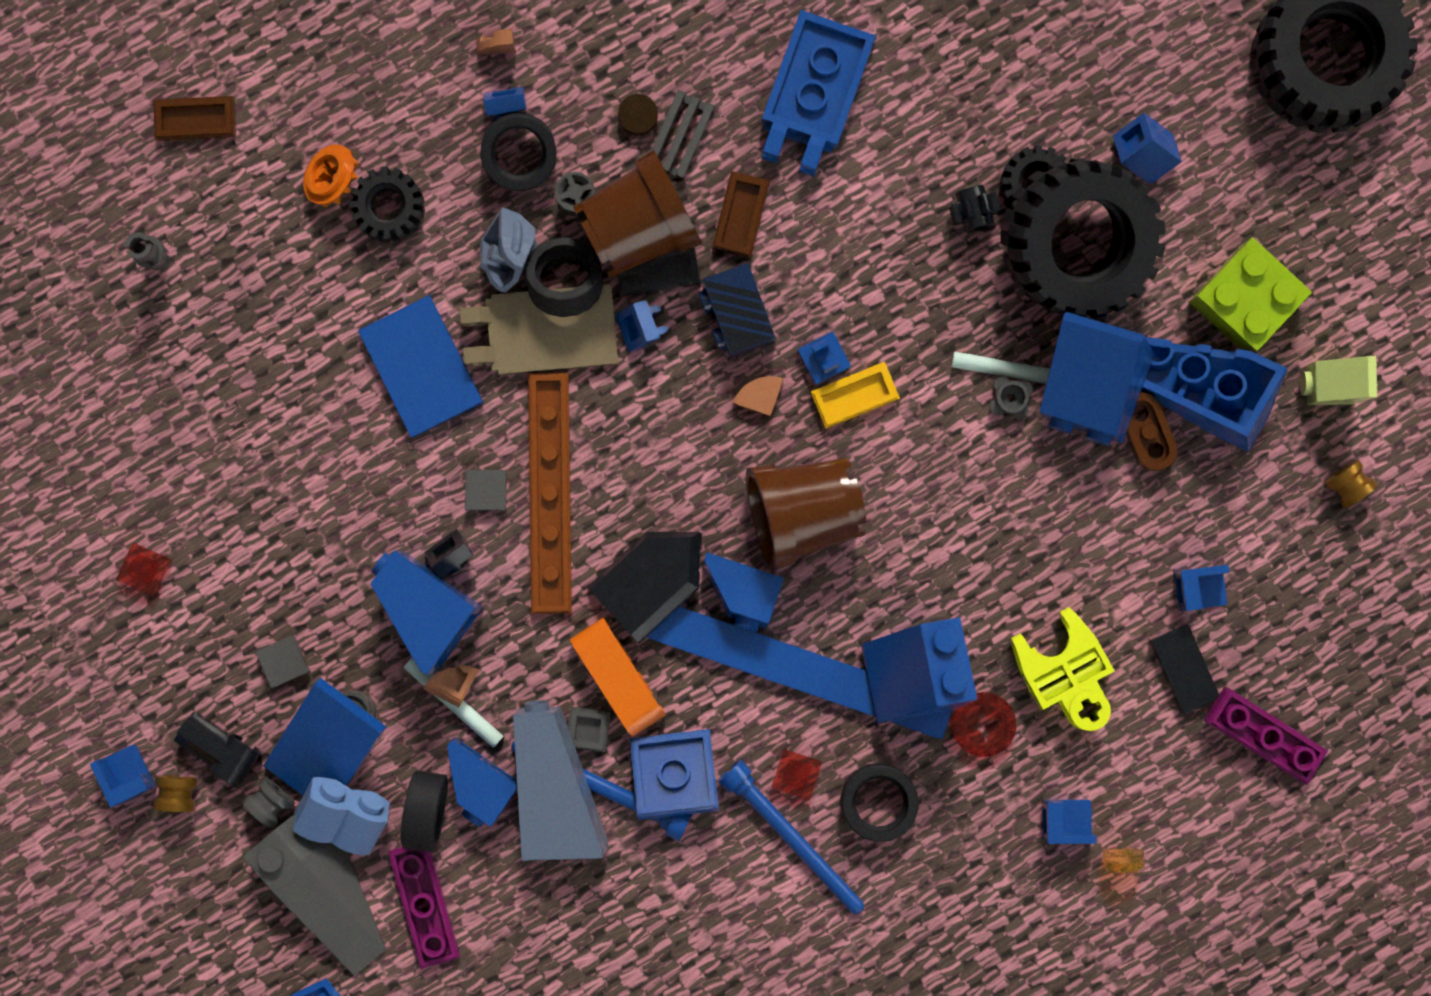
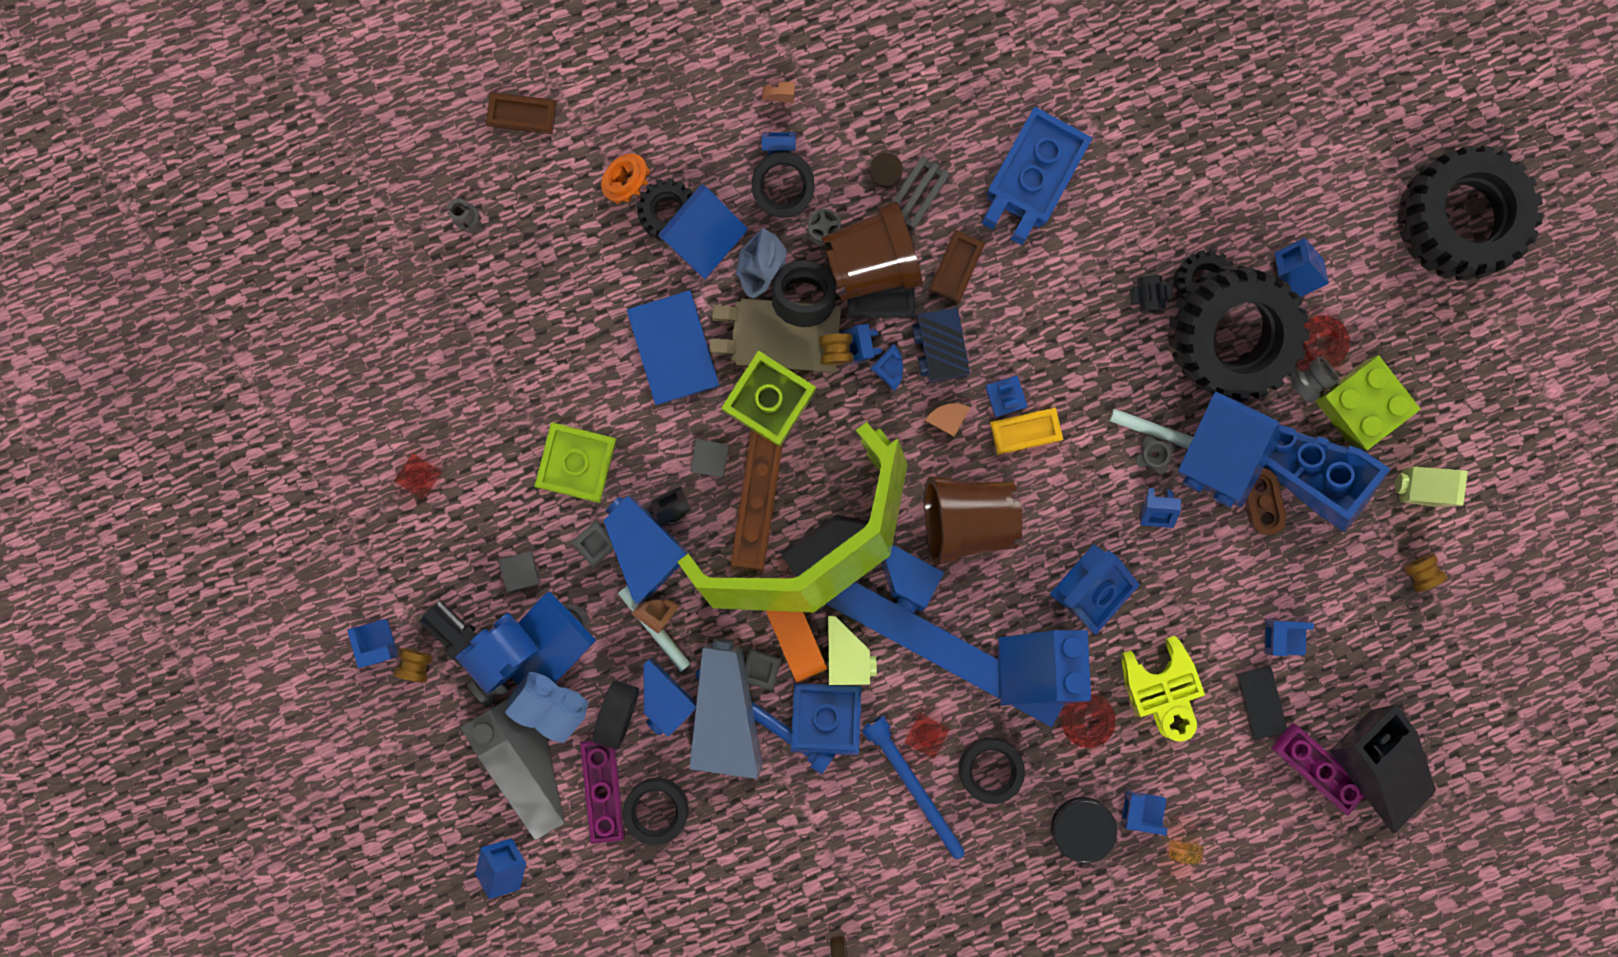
camera: 10 degrees right, 0 degrees up
(272, 762) = (497, 653): none -> blue brick
(328, 521) = (575, 462): none -> lime tile
(365, 614) = (593, 544): none -> dark grey tile
(433, 223) = (703, 231): none -> blue tile
(465, 935) = (649, 836): none -> black tyre
(543, 408) = (769, 399): none -> lime brick
(613, 336) = (836, 349): none -> pearl gold wheel
(658, 591) = (835, 570): none -> lime panel
(681, 347) = (889, 367): none -> blue tile
(687, 696) = (848, 656): none -> yellowish green slope
(966, 567) = (1095, 588): none -> blue bracket
(999, 854) = (1083, 829): none -> black head
(1028, 462) = (1160, 510): none -> blue tile
(1184, 277) = (1315, 379): none -> dark grey wheel
(1205, 235) = (1338, 345): none -> clear red gear
(1342, 717) = (1387, 764): none -> black slope

